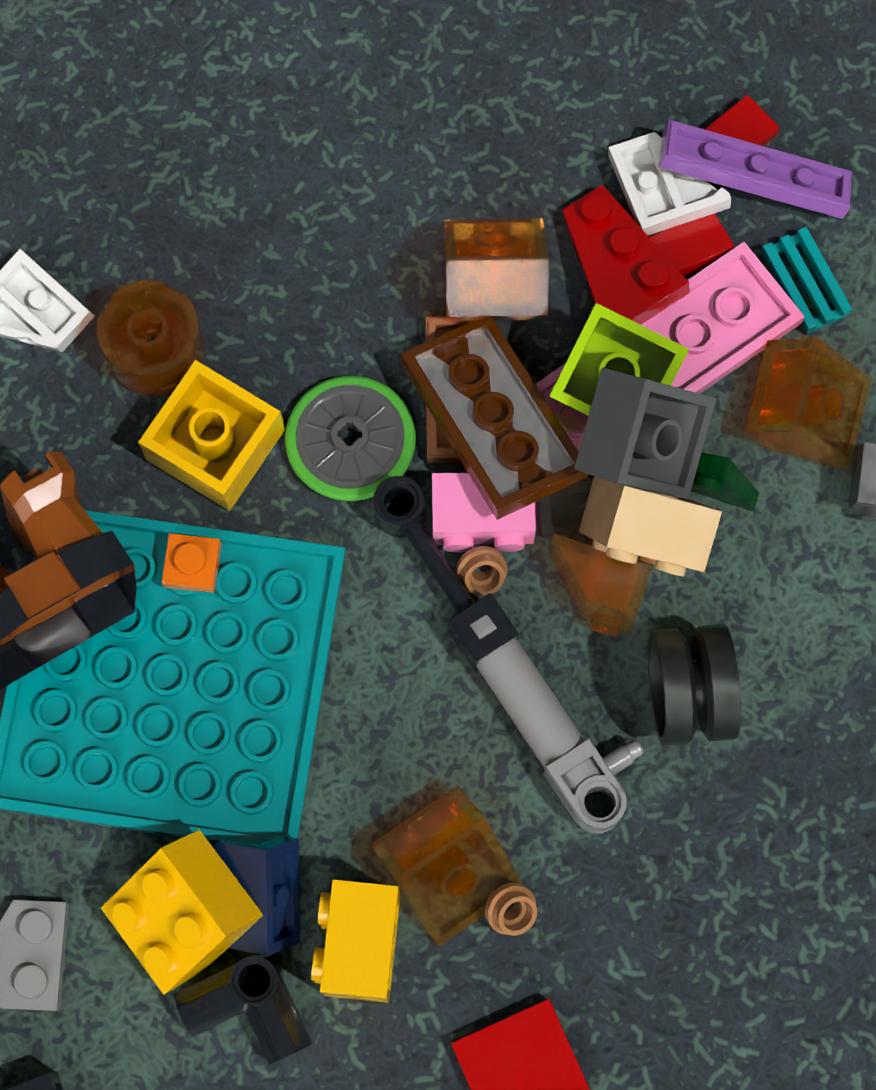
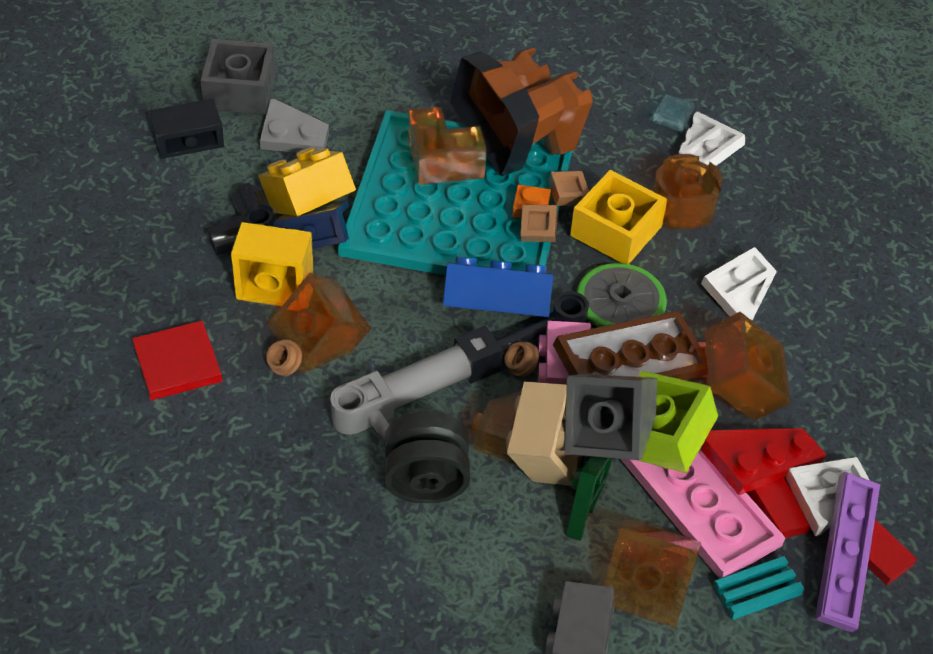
camera: 90 degrees right, 25 degrees down
(116, 707) = (443, 152): none -> clear orange brick
(164, 506) = (568, 187): none -> medium nougat plate
(245, 548) = (539, 223): none -> medium nougat plate
(318, 272) = (741, 283): none -> white wing
(369, 606) = (498, 287): none -> blue brick

